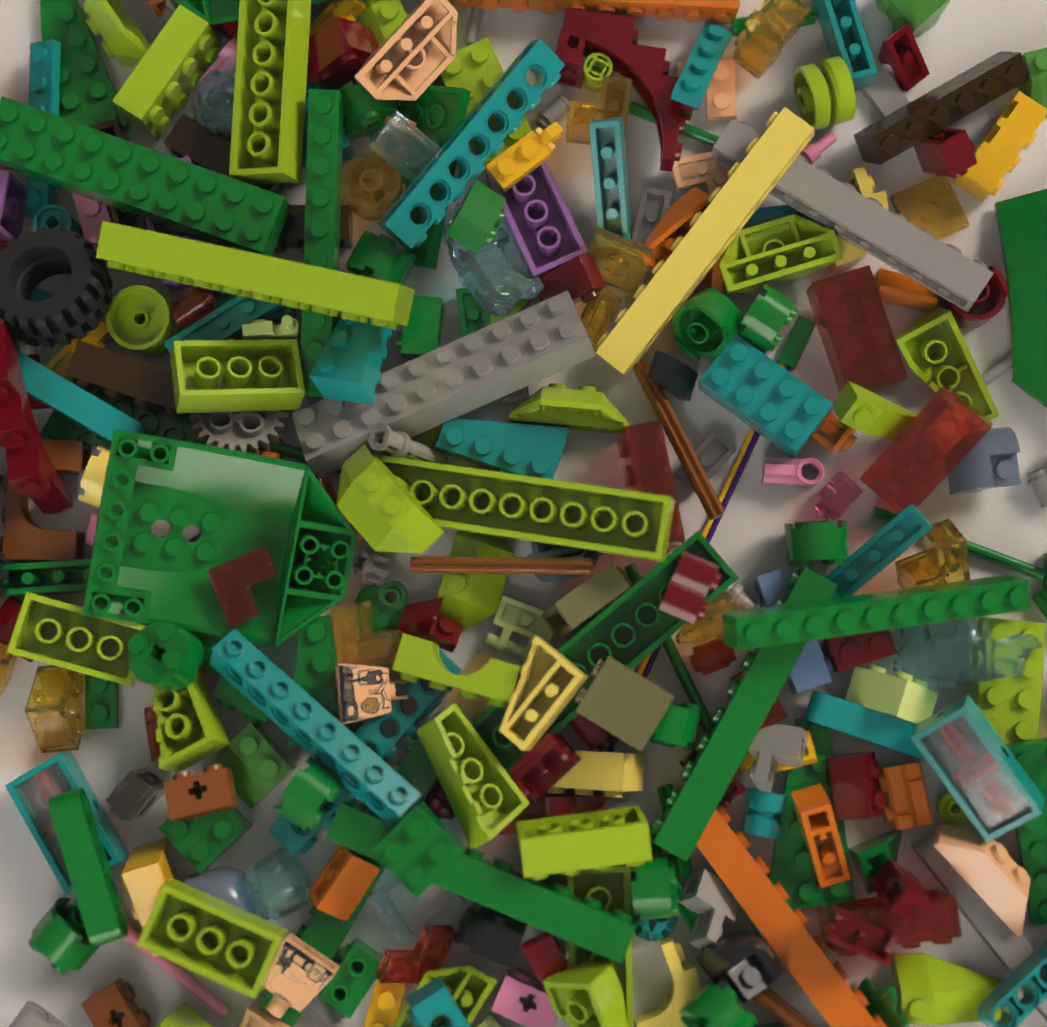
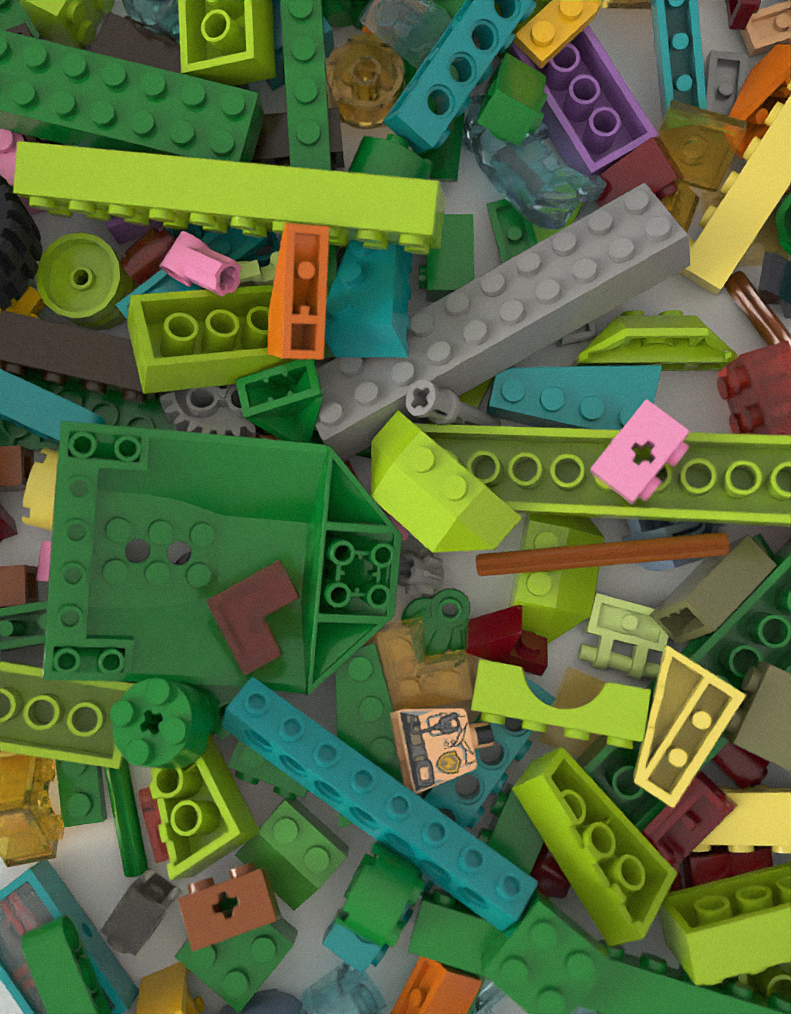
camera: 10 degrees left, 0 degrees up
(133, 727) = (126, 820): none -> green axle
(227, 320) = (194, 262): none -> bright pink piece
(279, 427) = (283, 399): none -> green slope
(295, 354) = (299, 294): none -> orange slope
(514, 501) = (646, 428): none -> bright pink brick

